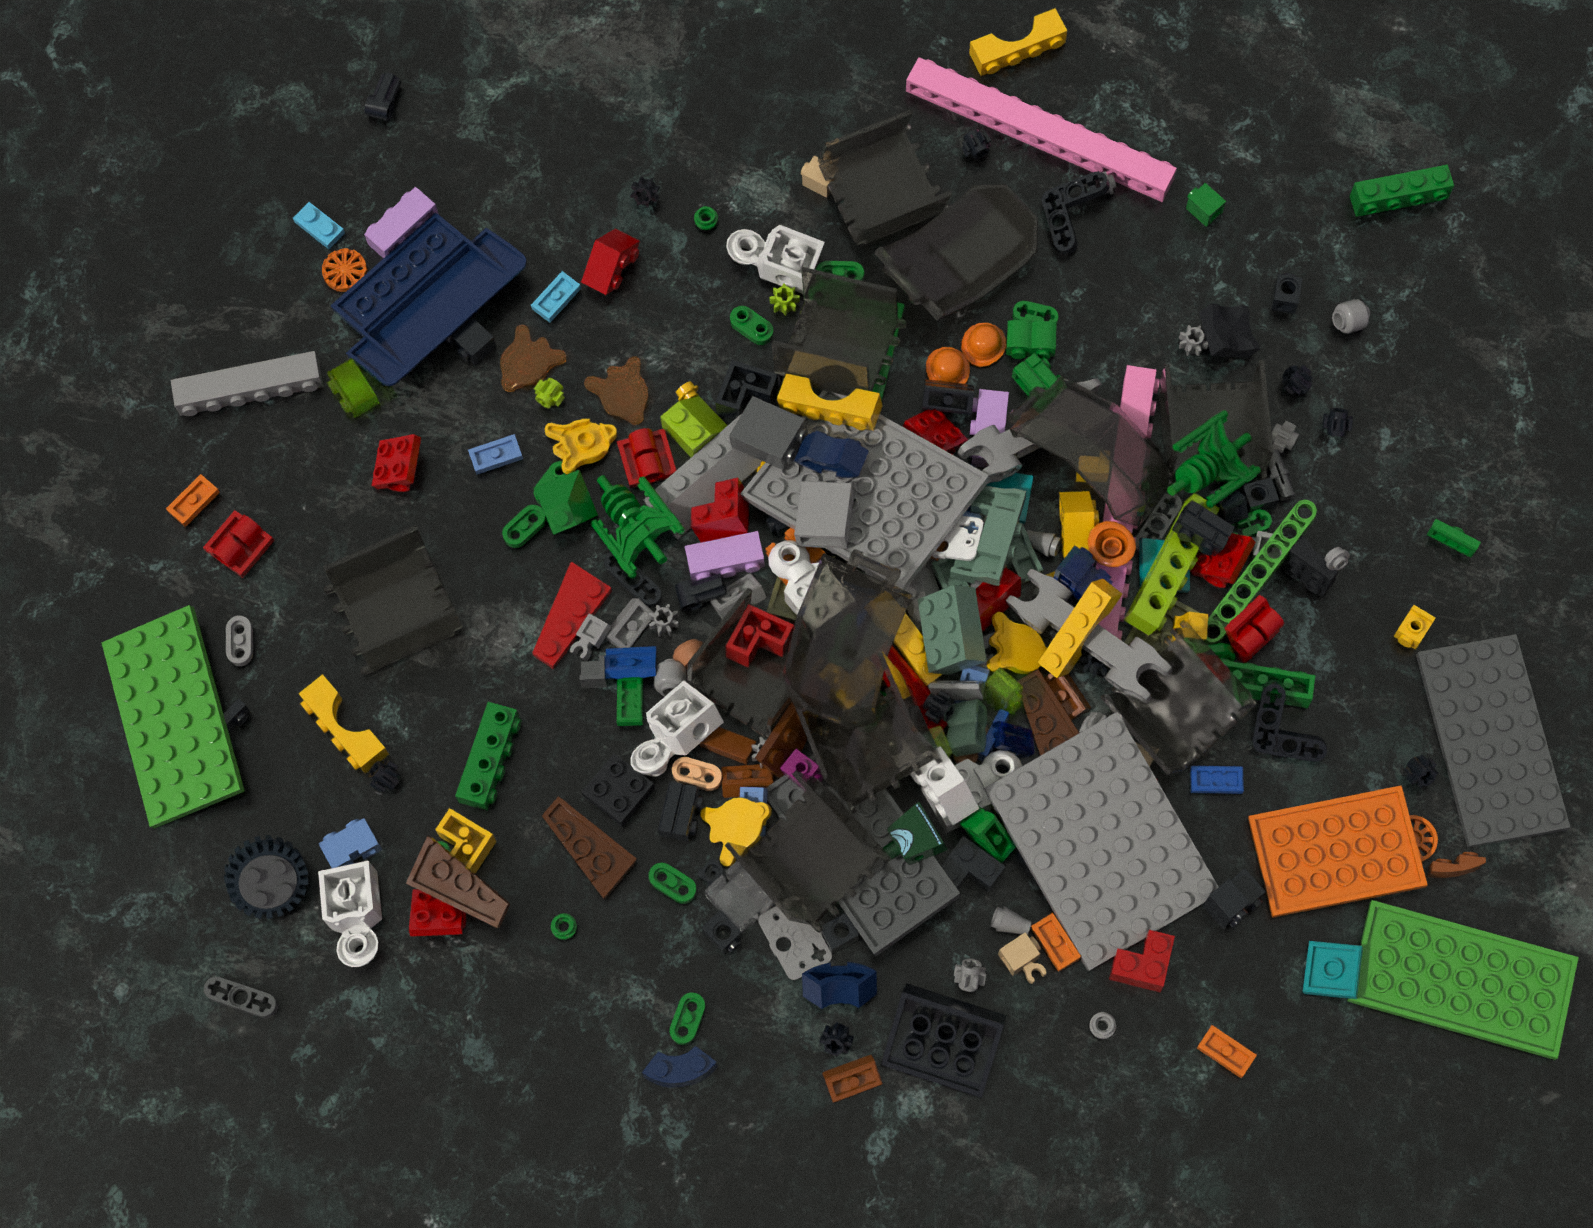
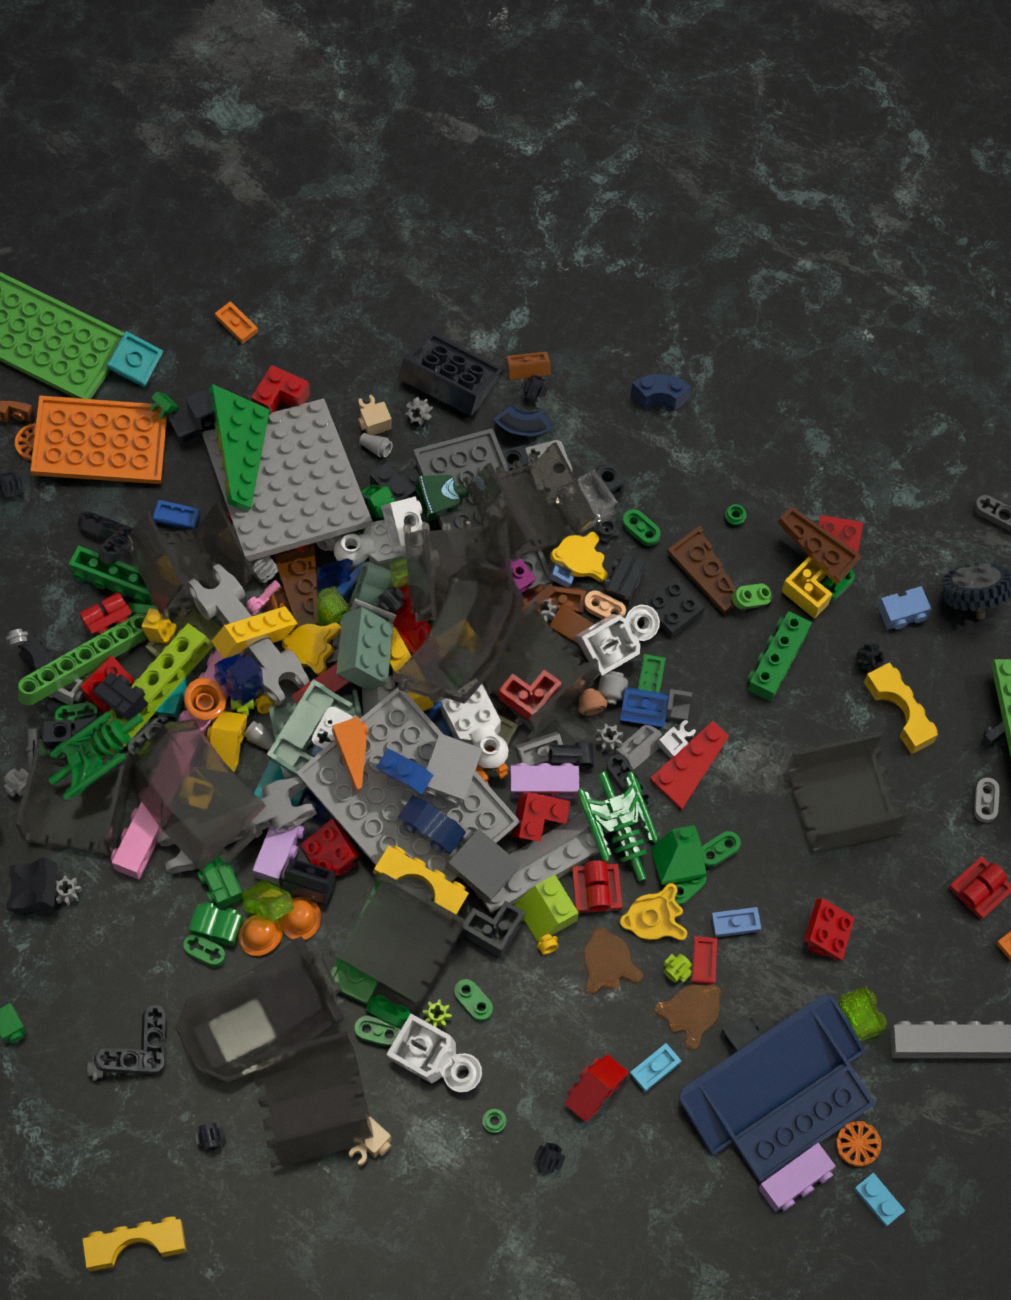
camera: 175 degrees left, 5 degrees down
(352, 907) = (908, 555): white brick -> none
(523, 412) = (704, 960): none -> red tile
(528, 822) = (756, 596): none -> bright green plate
(686, 1019) = (646, 428): green plate -> none
(871, 488) = (404, 771): none -> blue brick
(937, 510) = (351, 742): none -> orange slope
(984, 363) = (267, 901): none -> clear neon green brick
(1040, 128) = (144, 1142): bright pink brick -> none
(1055, 942) = (344, 422): orange plate -> none
(1091, 690) = (256, 604): none -> bright pink plate
(1102, 1017) = (325, 355): light grey plate -> none
(1169, 867) = (240, 438): none -> green wing
(1274, 906) = (164, 403): none -> green tile

